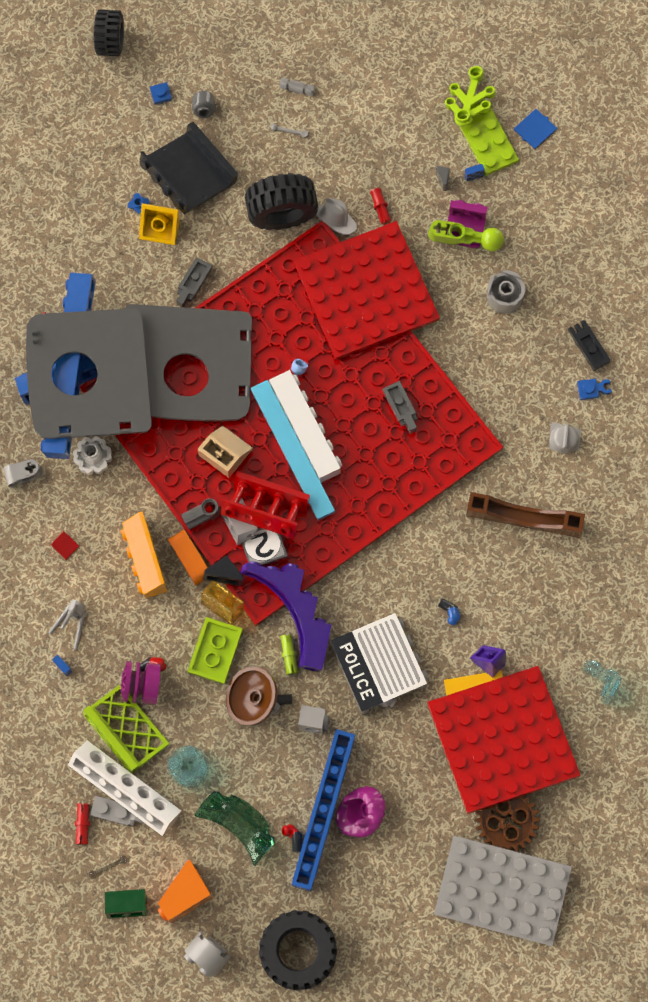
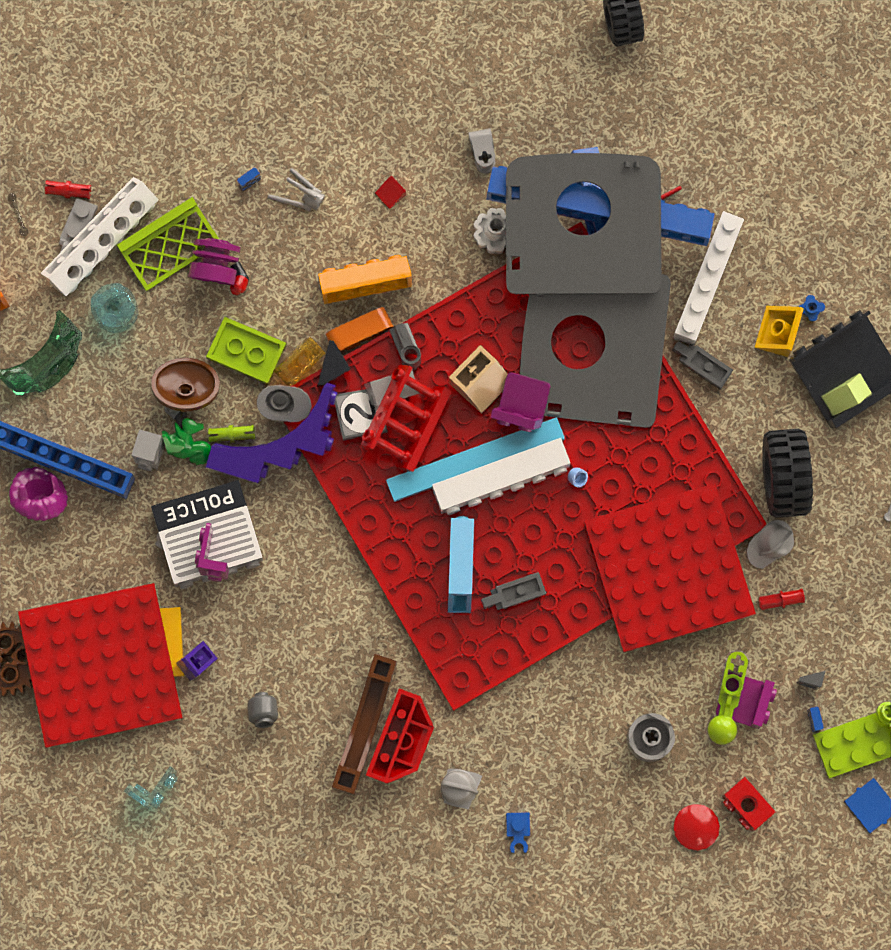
camera: 90 degrees right, 5 degrees up
(125, 282) = (708, 278): none -> white brick
(209, 169) = (846, 395): none -> yellowish green slope
(242, 413) = (522, 402): none -> magenta bracket
(261, 607) = (284, 403): none -> light grey piece
(296, 836) = (24, 420): arm -> none
(303, 693) = (182, 445): none -> green animal
(383, 449) = (461, 565): none -> slope
(405, 657) = (213, 569): none -> magenta bracket
(452, 609) = (260, 627): arm -> none
(522, 600) = (262, 710): none -> dark grey head
(533, 484) = (402, 739): none -> red wedge
(551, 206) = (761, 809): none -> red brick
(570, 254) = (696, 827): none -> red dish
(589, 345) = (572, 833): black hinge -> none

